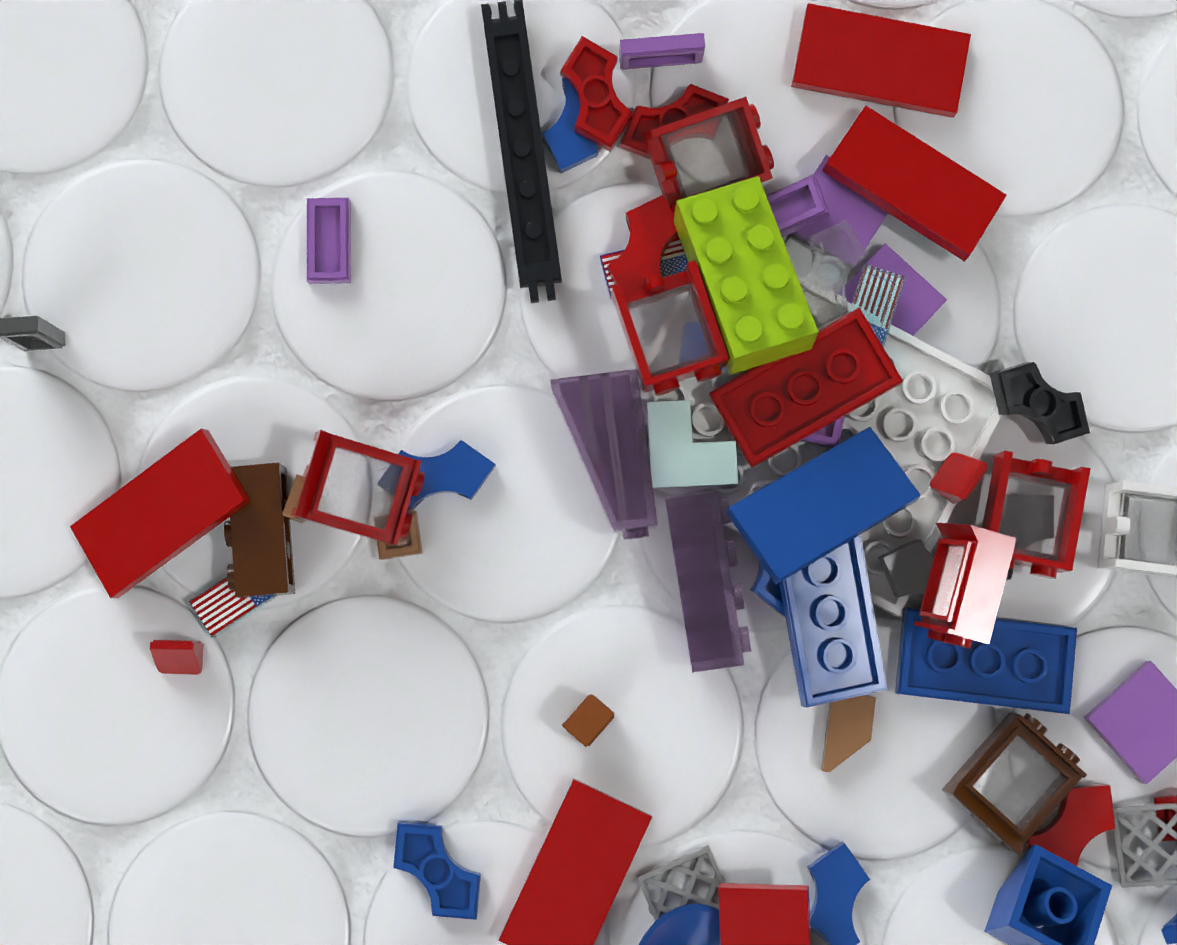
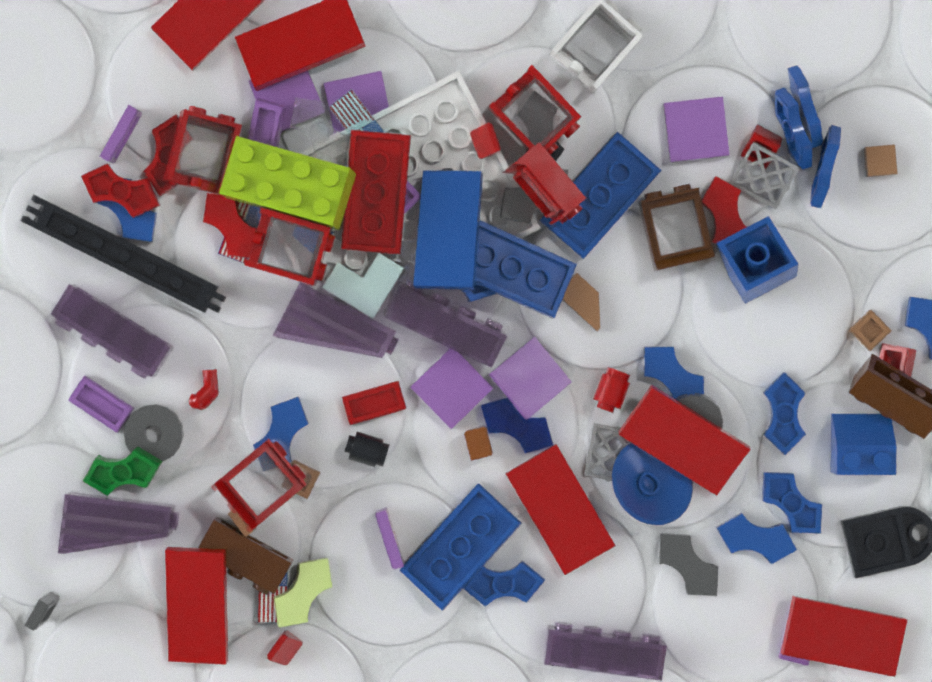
camera: 55 degrees left, 5 degrees up
(193, 341) = (107, 521): none -> clear purple slope
(242, 630) = (294, 604): none -> yellowish green tile
(278, 331) = (134, 469): none -> green tile
(327, 301) = (164, 419): none -> dark grey tile
(398, 692) = (389, 538): none -> medium lavender tile
(424, 194) = (112, 331): none -> clear purple brick
(427, 355) = (207, 393): none -> red arm
(446, 786) = (460, 546): none -> blue tile
(488, 590) = (367, 449): none -> black brick
(550, 560) = (374, 402): none -> red tile
(632, 641) = (451, 387): none -> medium lavender tile
(643, 771) = (504, 418): none -> clear blue tile
(709, 729) = (530, 378): none -> medium lavender tile
(765, 839) = (612, 390): none -> red brick
(1026, 393) = (464, 67): black tile -> none

